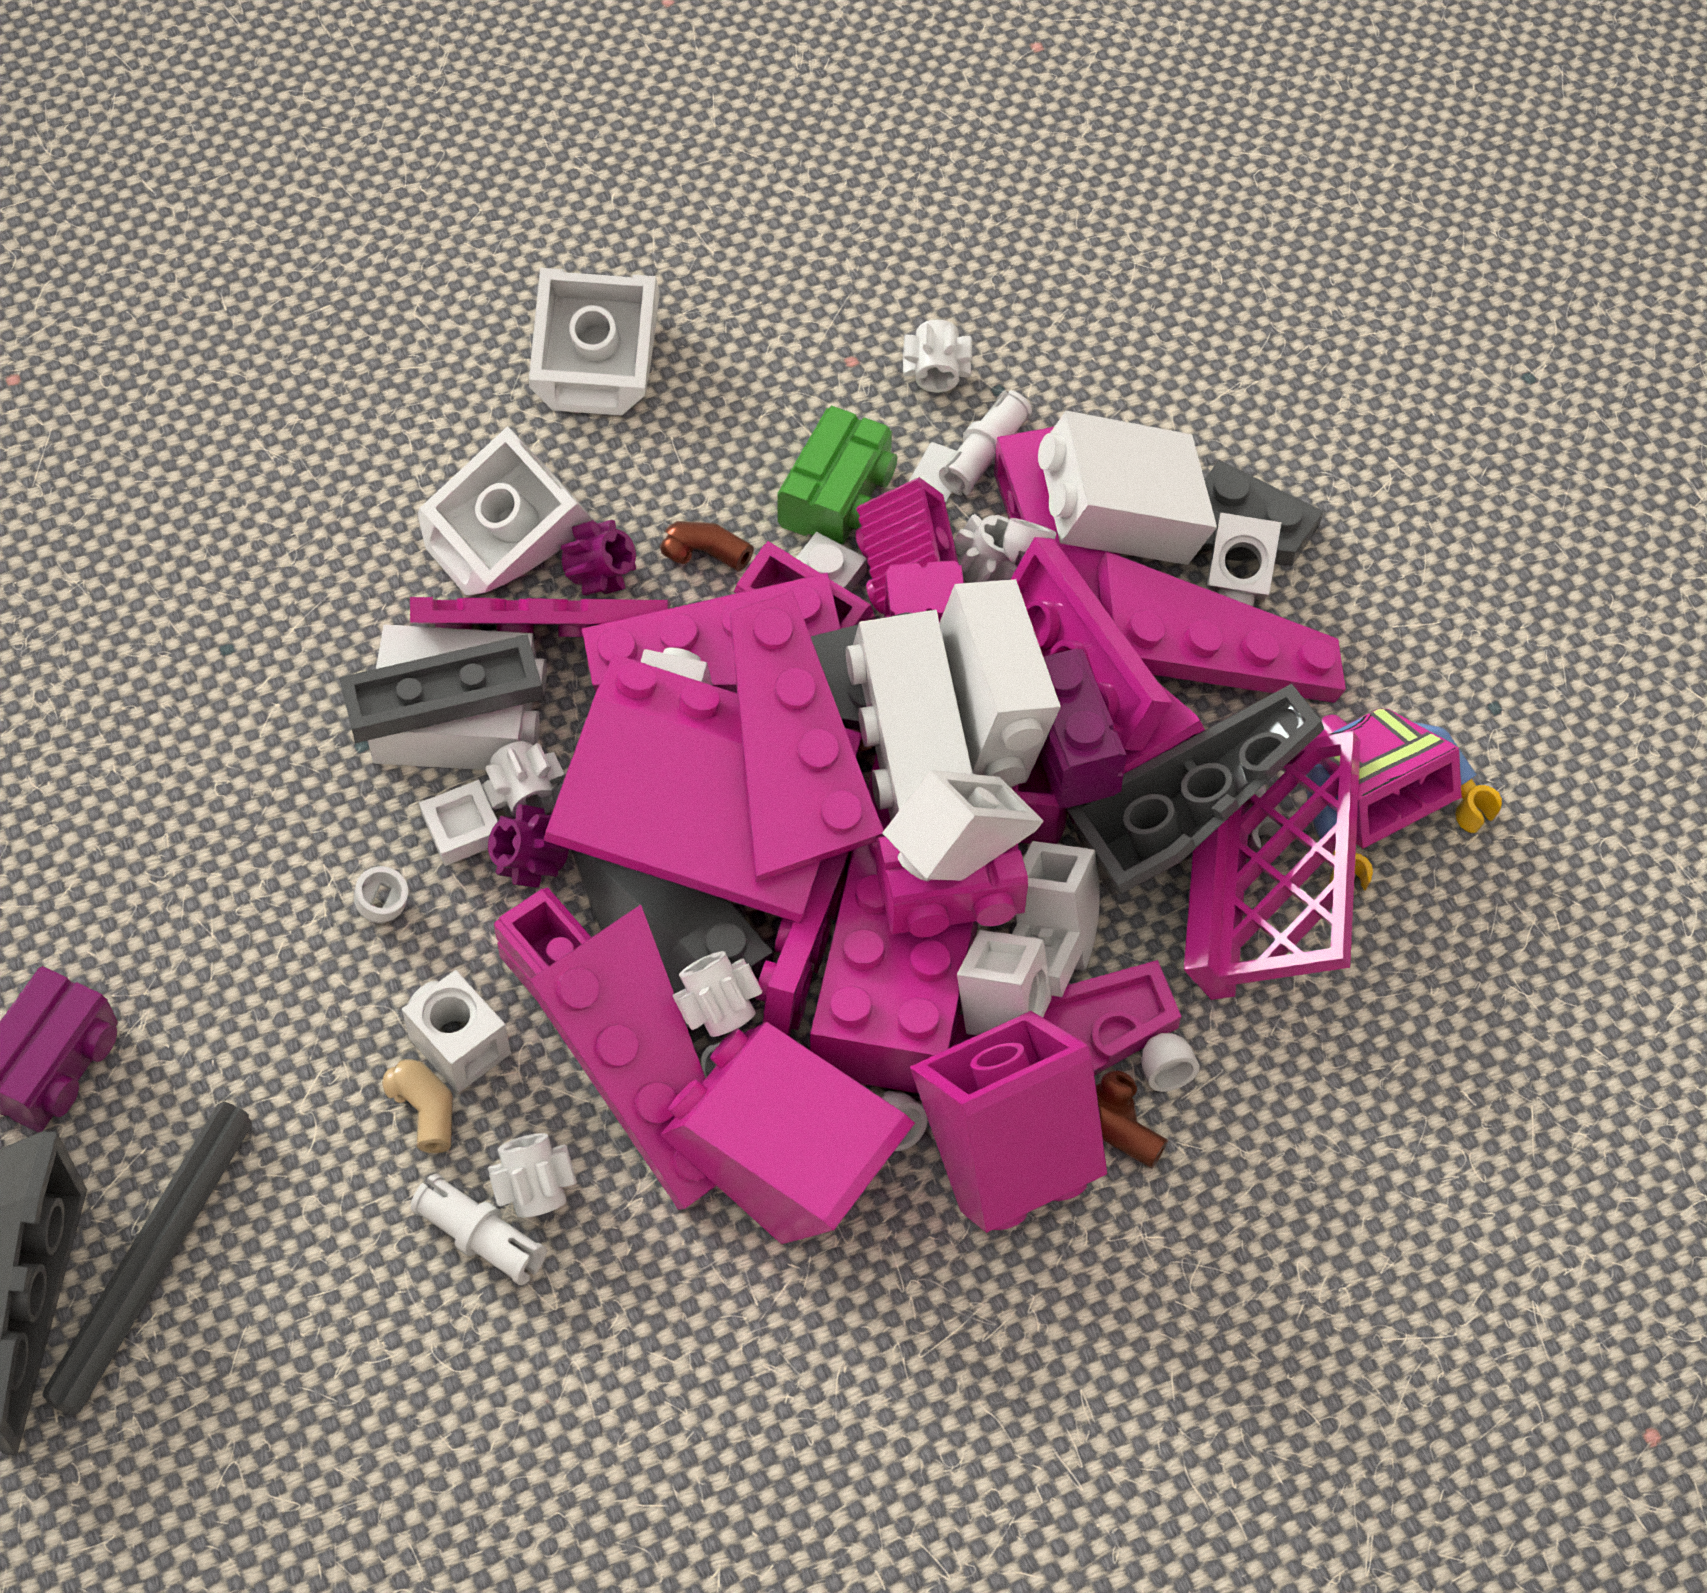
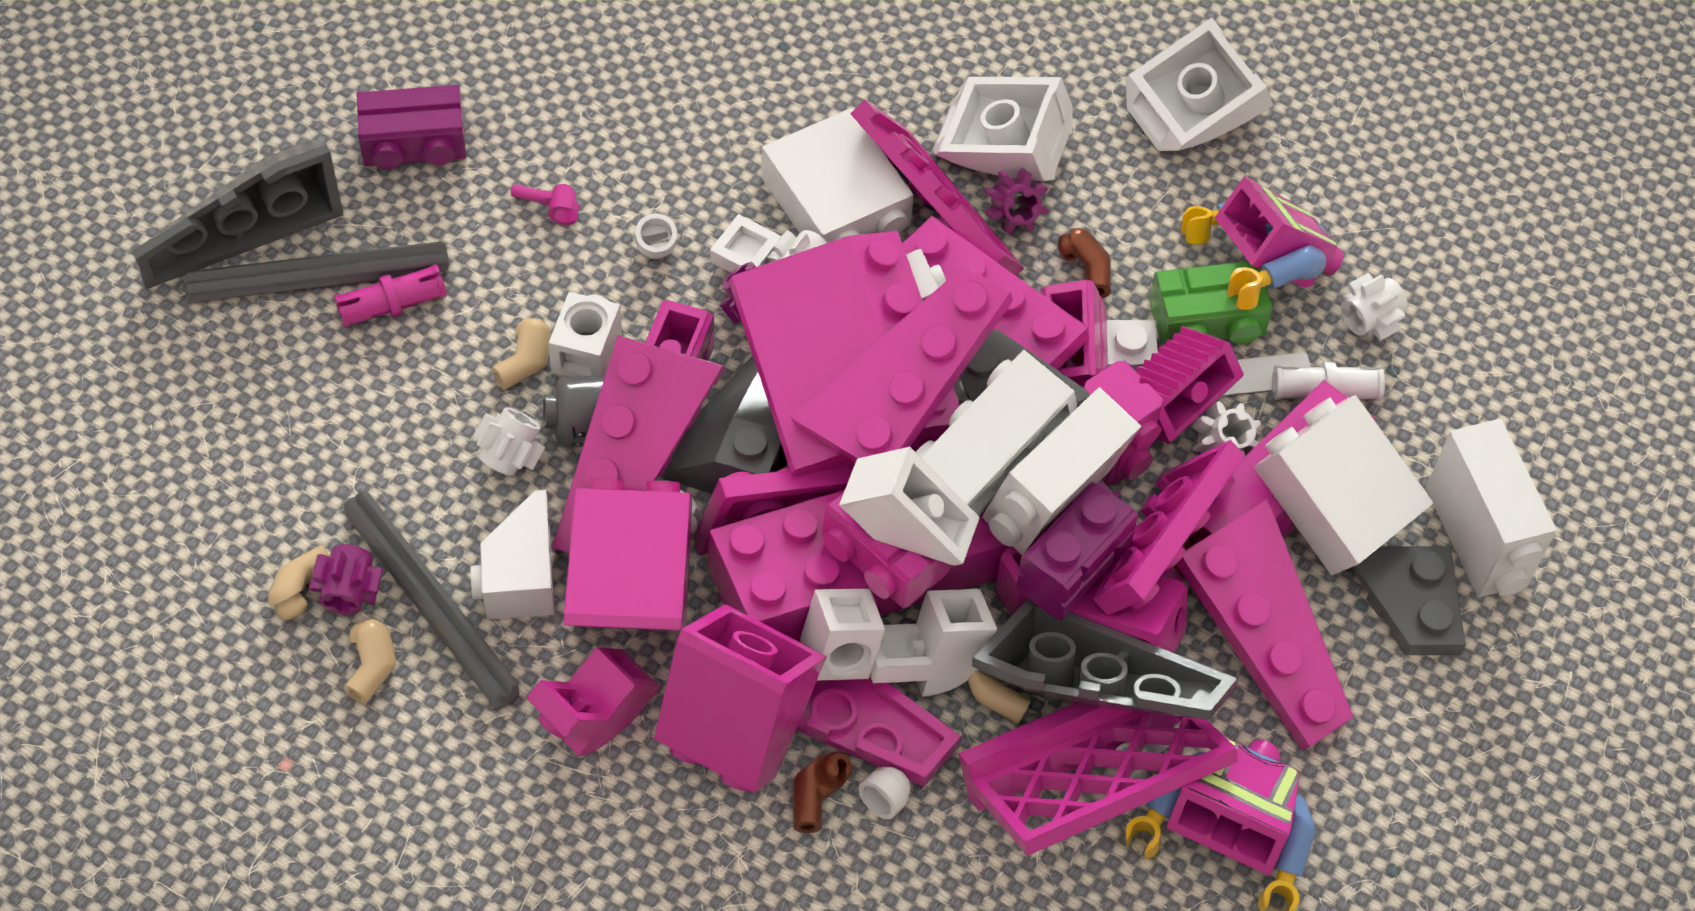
camera: 55 degrees right, 0 degrees up
(244, 1196) = (390, 296): none -> dark pink pin
(256, 958) = (561, 201): none -> dark pink hand
(441, 688) = (819, 165): dark grey plate -> none
(478, 1229) = (453, 437): white pin -> none
(537, 1495) = (291, 581): none -> tan arm
(542, 1085) = (572, 408): none -> dark grey head
(585, 1432) = (345, 579): none -> magenta gear
(656, 1363) = (432, 600): none -> dark grey axle
(687, 1247) = (517, 564): none -> white slope
(694, 1456) = (377, 659): none -> tan arm
(717, 994) = (697, 455): white gear -> none
(810, 376) = (1271, 235): none -> torso
(903, 1263) = (596, 701): none -> dark pink brick
(1020, 535) = (1244, 438): white hinge -> none
(1132, 905) = (998, 696): none -> tan arm
(1226, 397) = (1490, 508): none -> white brick
(1251, 533) = (1385, 610): white brick -> none

